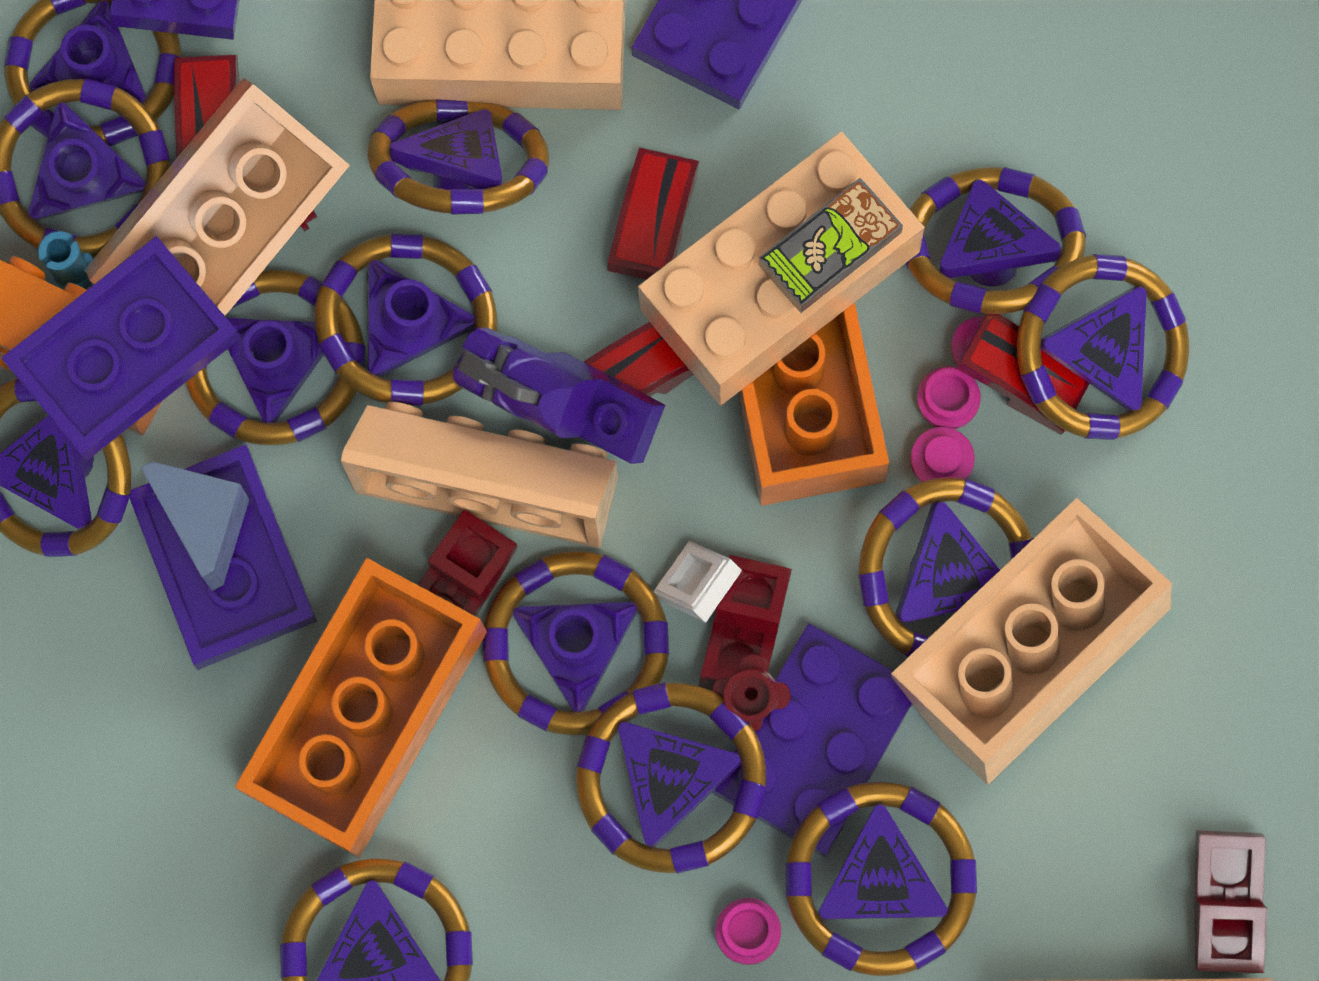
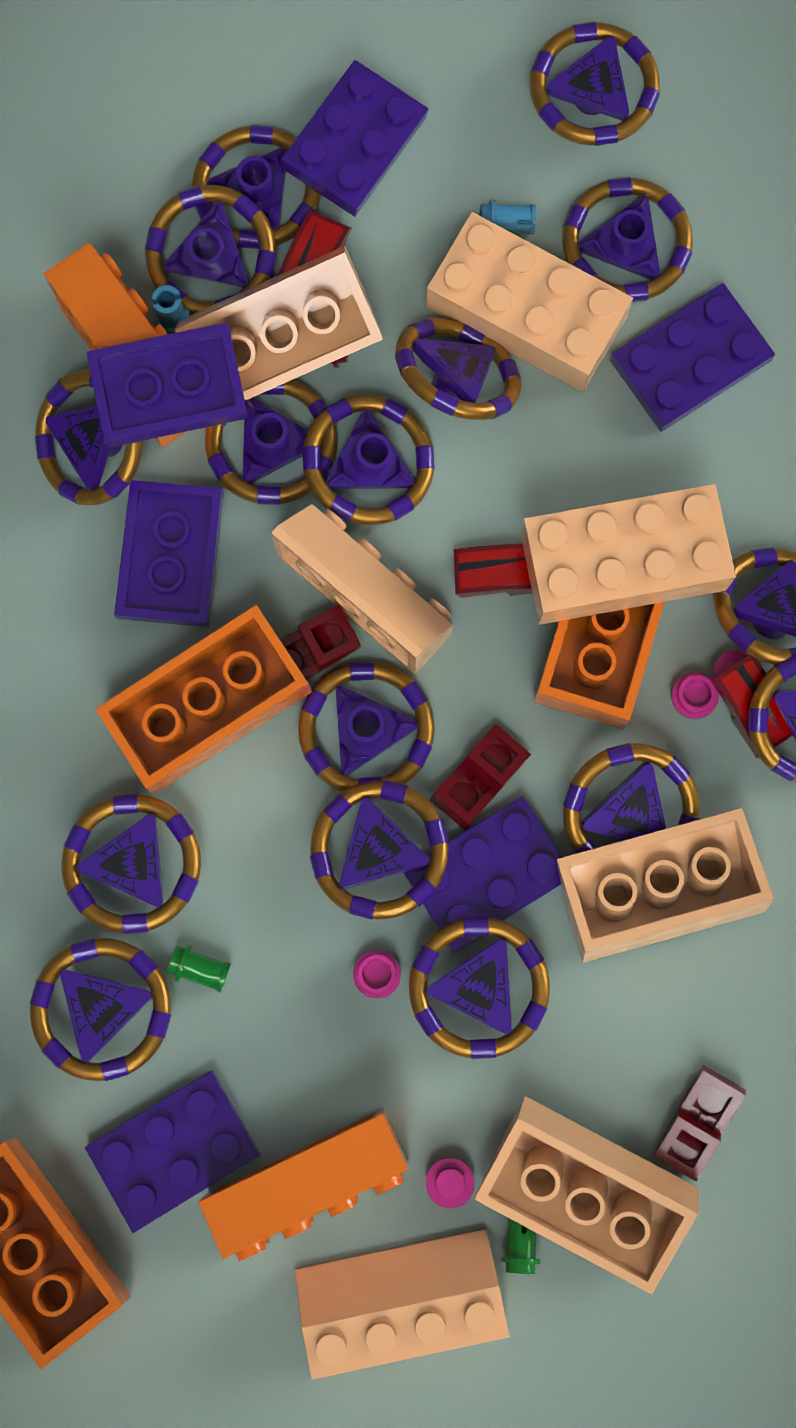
camera: 25 degrees right, 5 degrees up
(203, 513) = (168, 522): sand blue slope -> none
(559, 394) = (440, 560): dark purple plate -> none
(652, 213) = (565, 472): slope -> none
(697, 581) = (465, 730): white tile -> none
(752, 674) = (466, 810): dark red plate -> none
(830, 245) = (665, 557): tile -> none
(942, 454) = (669, 732): dark pink plate -> none

